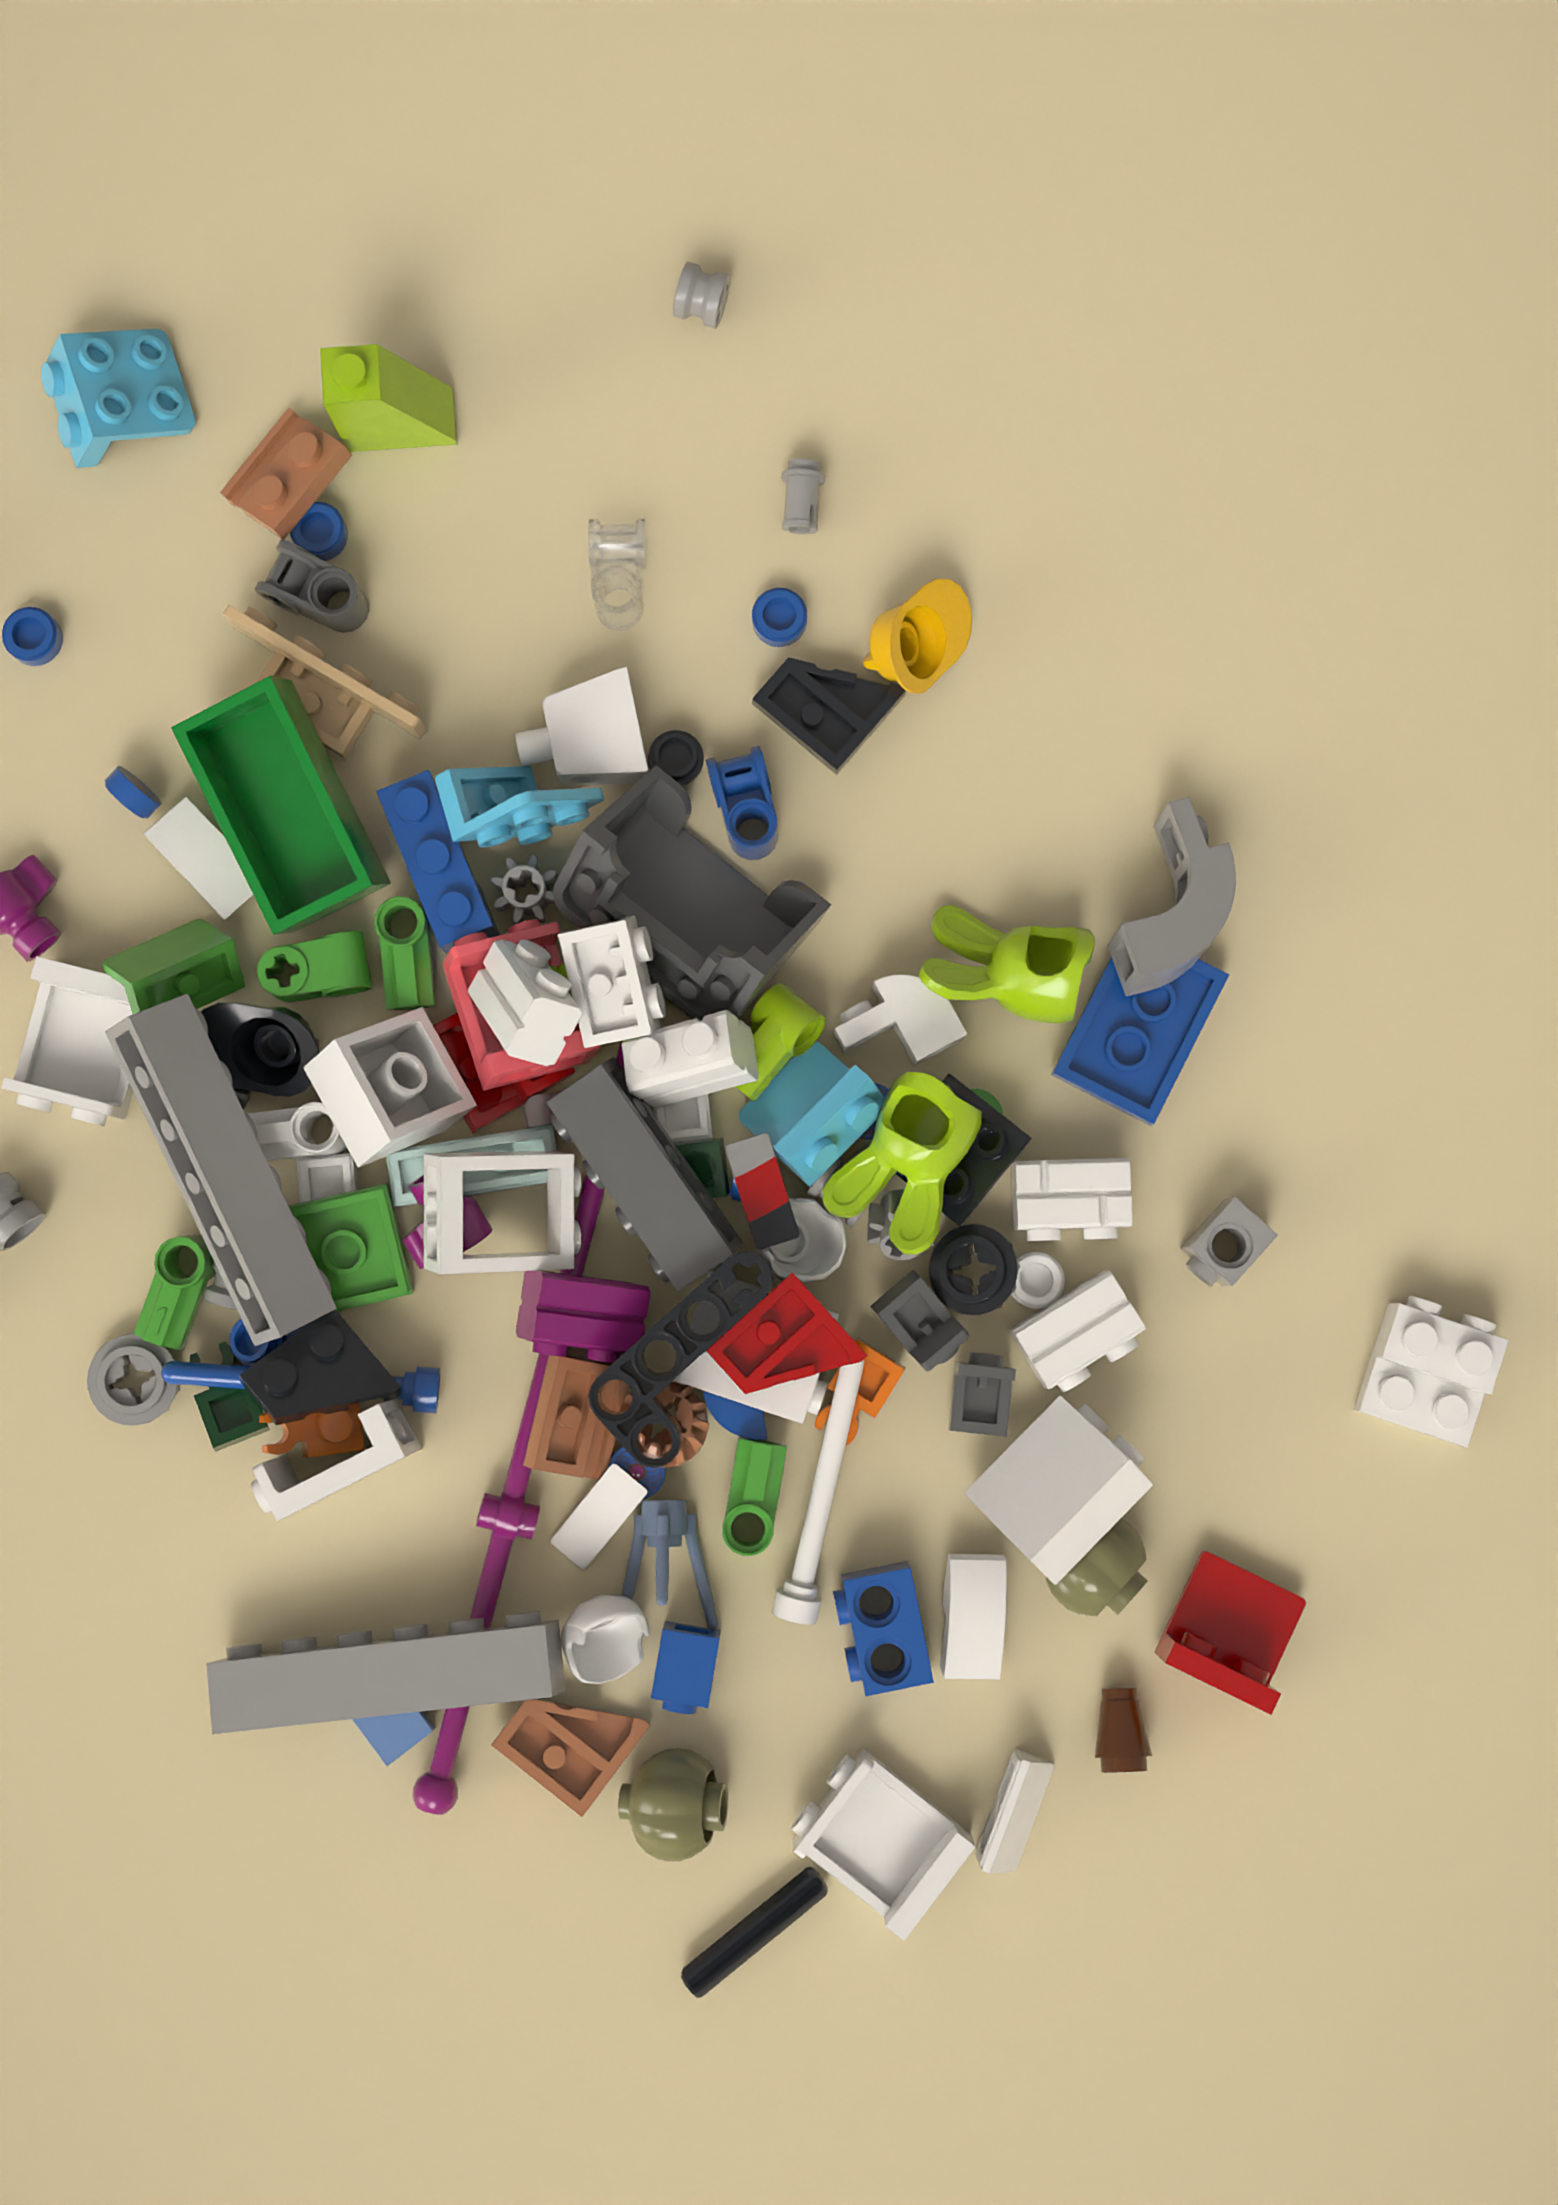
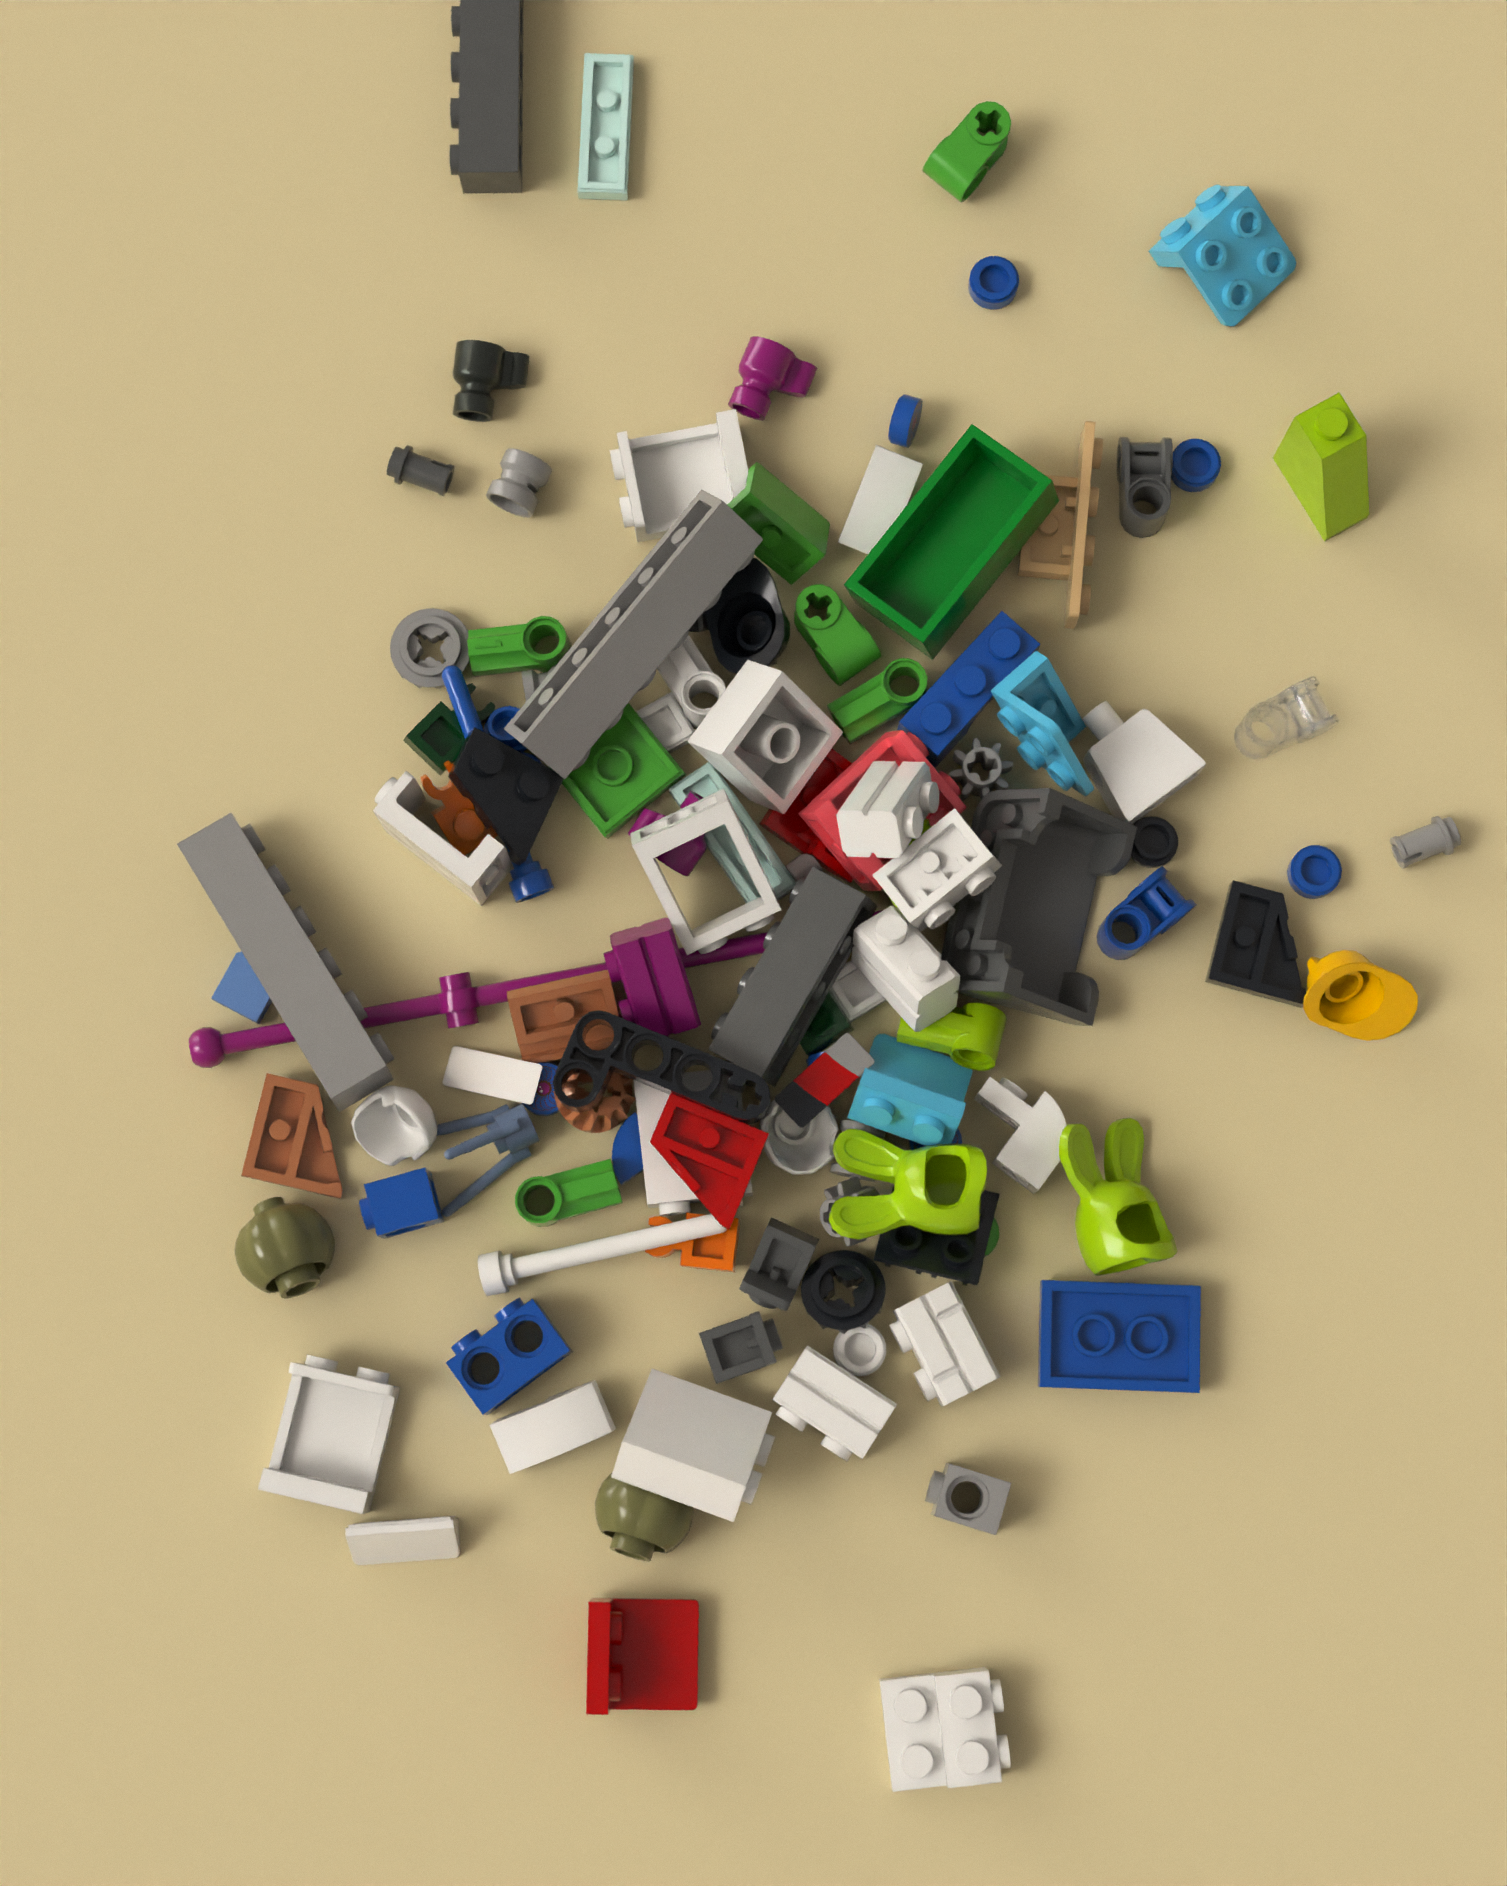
camera: 65 degrees right, 5 degrees down
(286, 473) = (1228, 416): nougat plate -> none
(754, 1932) = (208, 1365): black axle -> none
(1121, 1733) = (512, 1599): reddish brown cone -> none
(1204, 878) = (1202, 1328): light grey arch -> none

